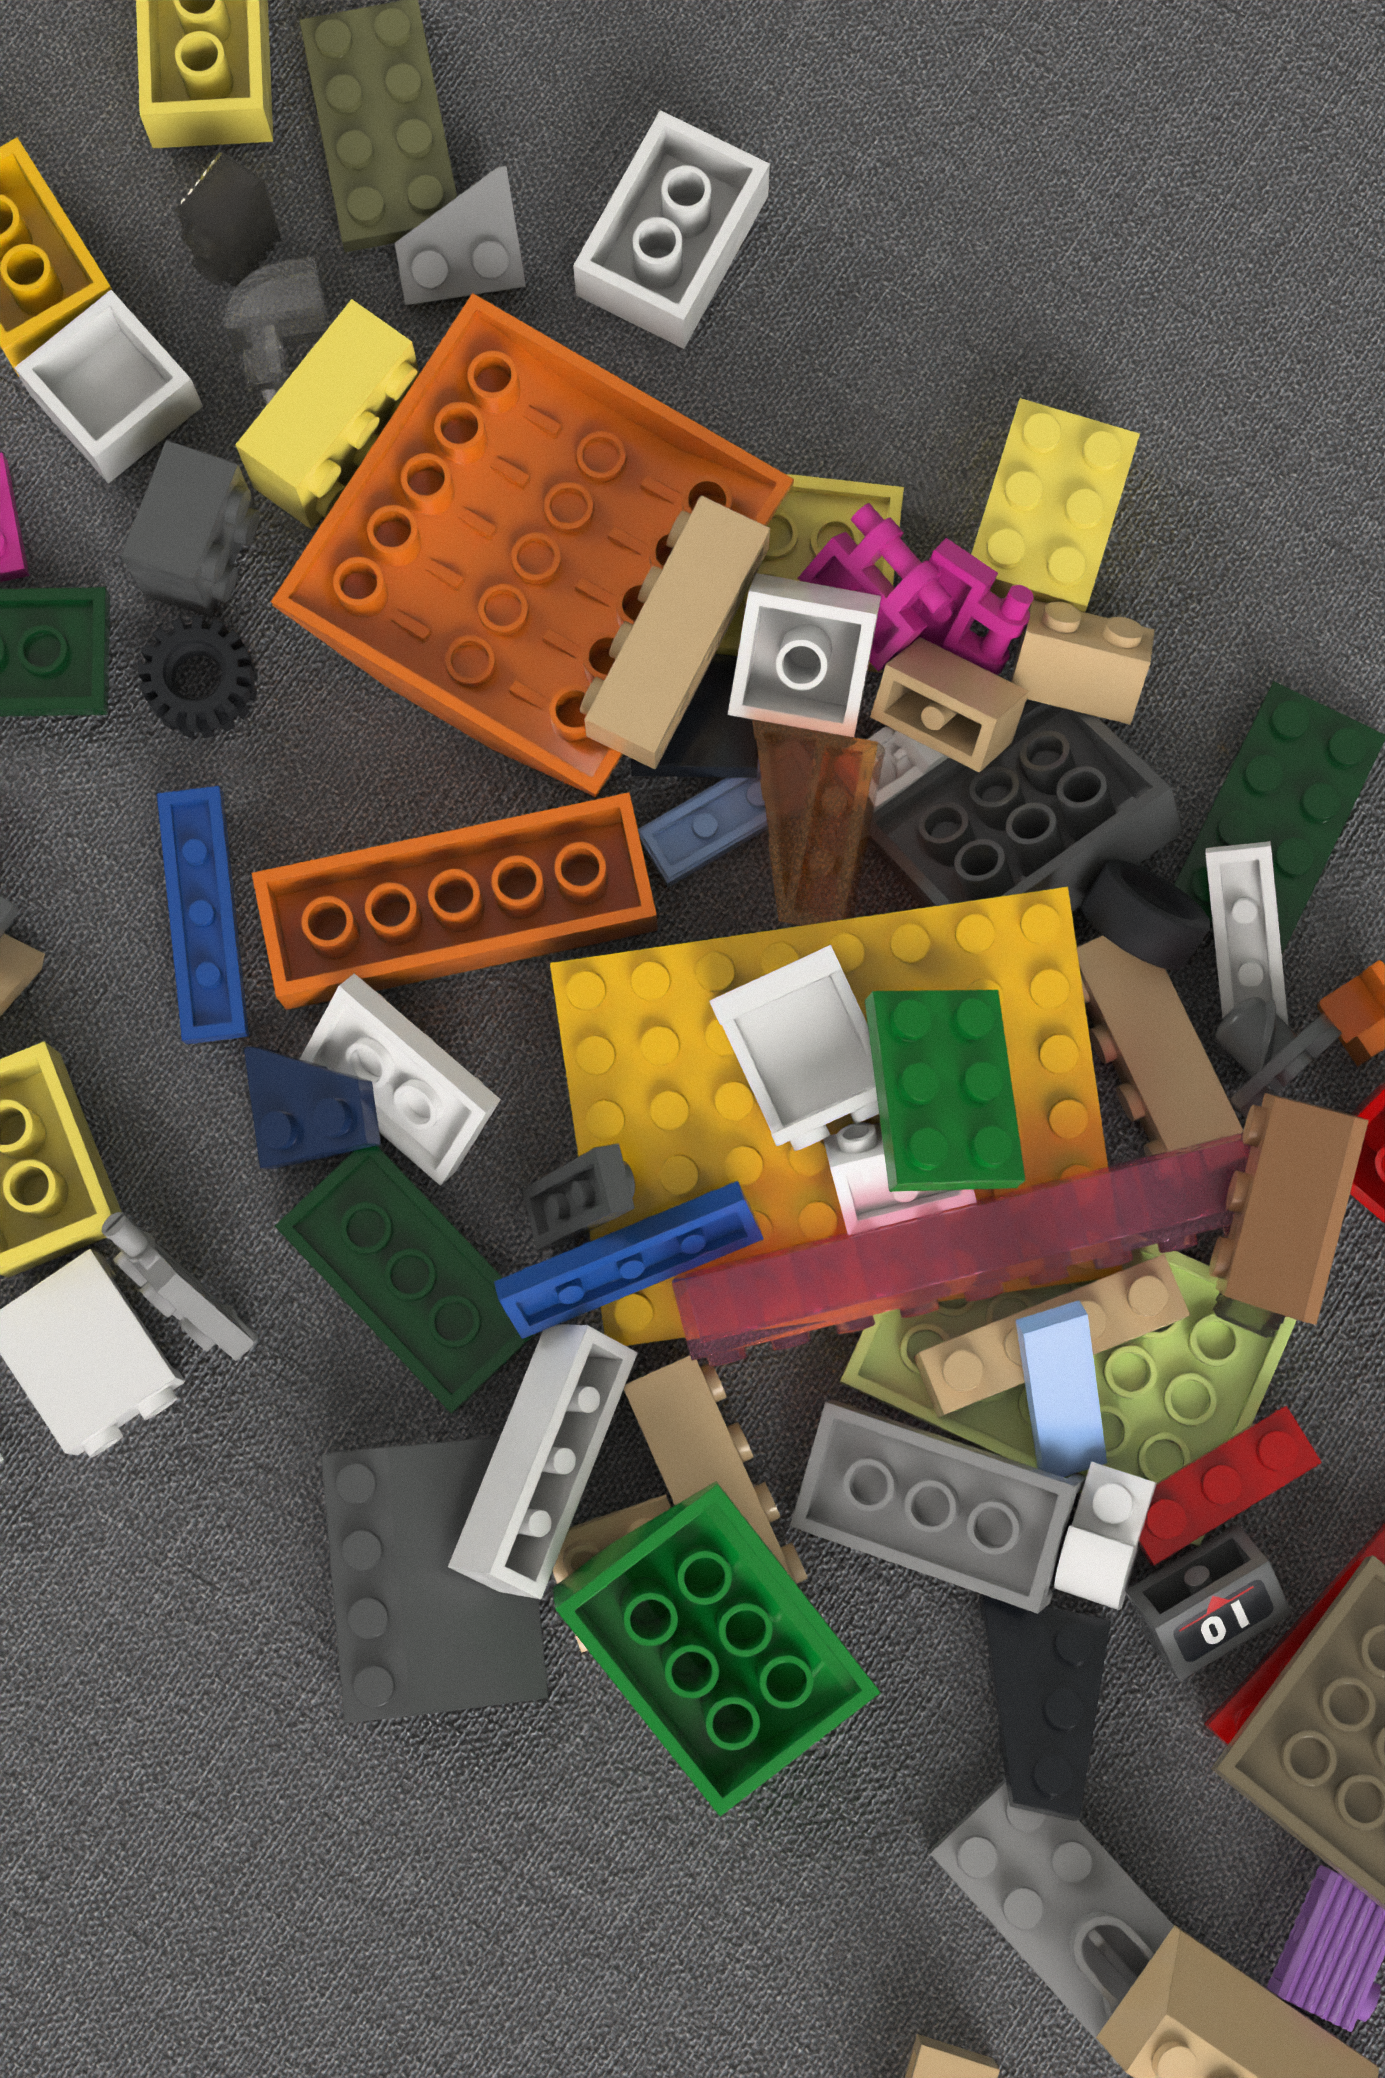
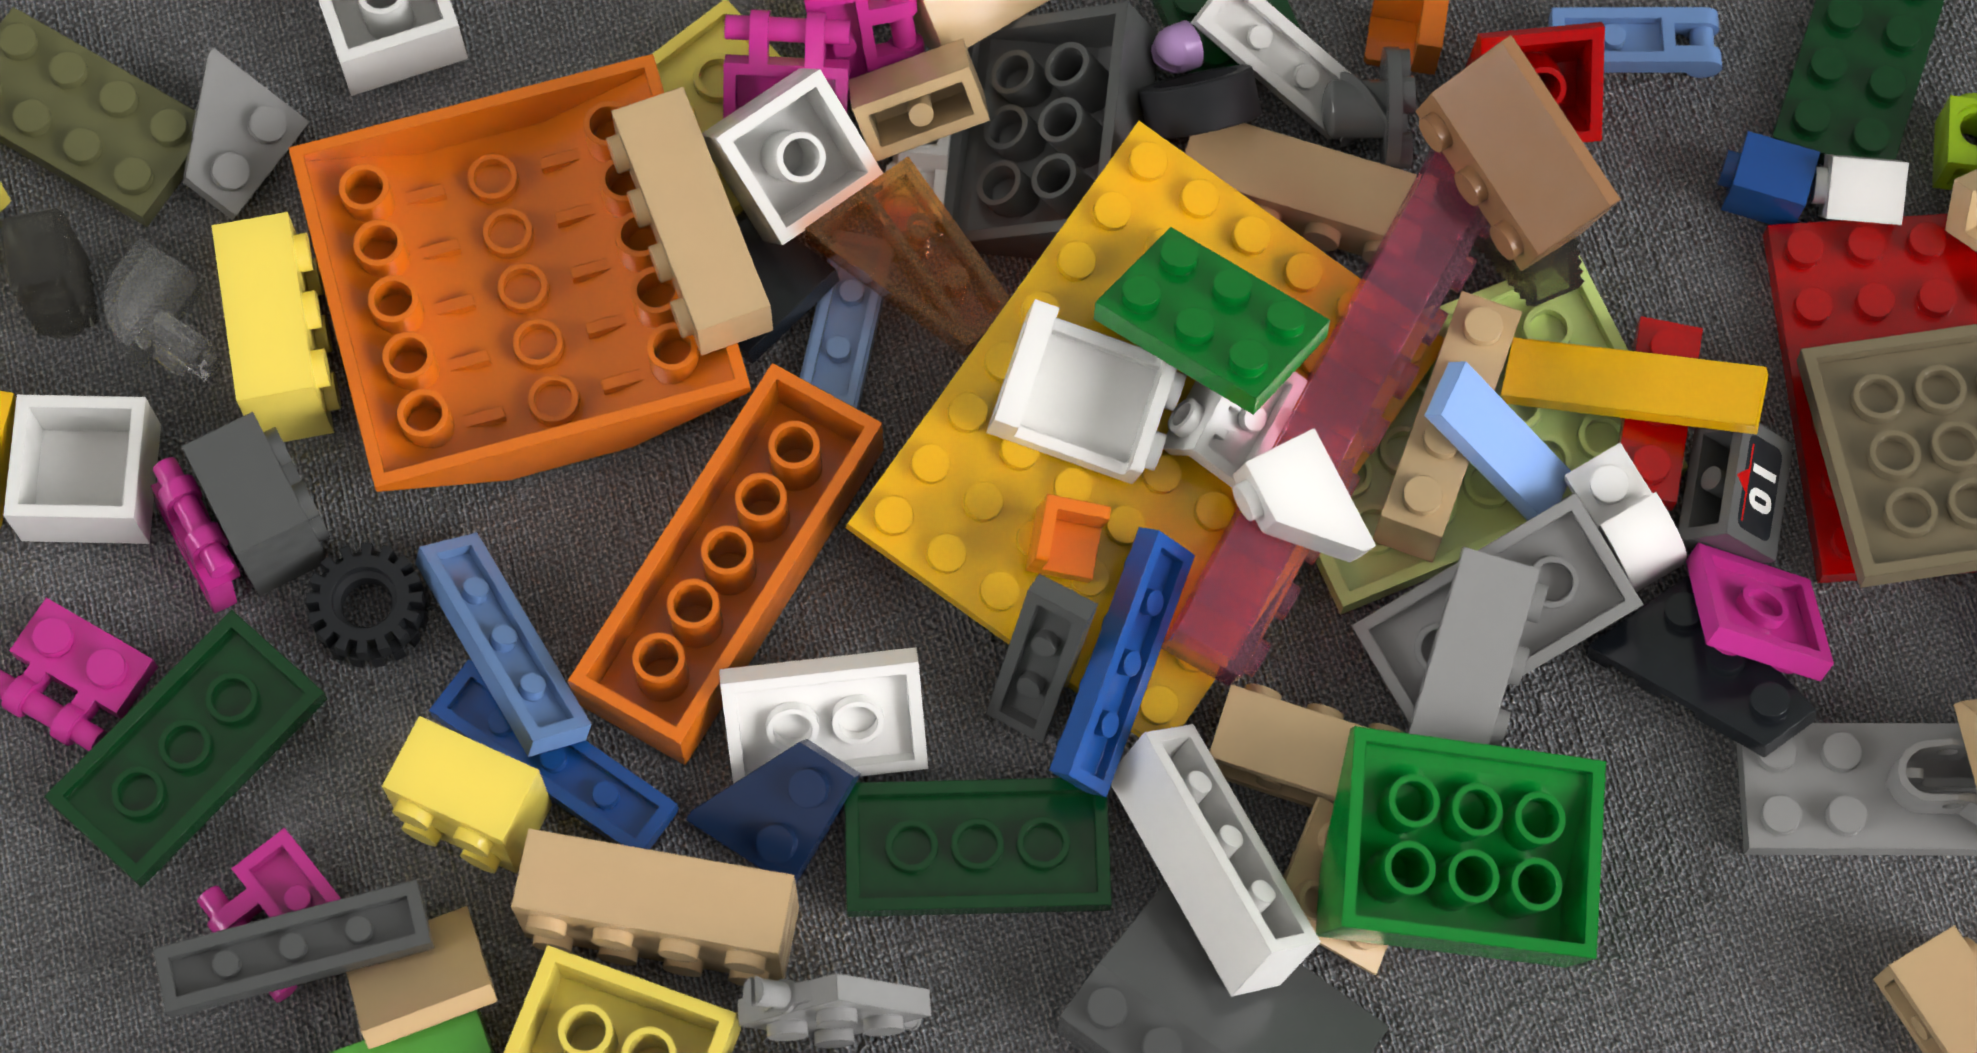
camera: 50 degrees left, 10 degrees down
(108, 881) = (466, 796): none -> light yellow brick
(118, 521) = (196, 536): none -> dark pink plate
(147, 1089) = (655, 907): none -> tan brick
(248, 799) = (503, 644): none -> medium blue plate
(680, 1135) = (1066, 538): none -> orange panel
(861, 1283) = (1302, 499): none -> white slope
(880, 1519) = (1478, 649): none -> light grey brick
(1120, 1705) = (1759, 612): none -> dark pink plate
(1178, 856) = (1178, 48): none -> lavender hinge
(1217, 1453) = (1635, 385): none -> yellow tile

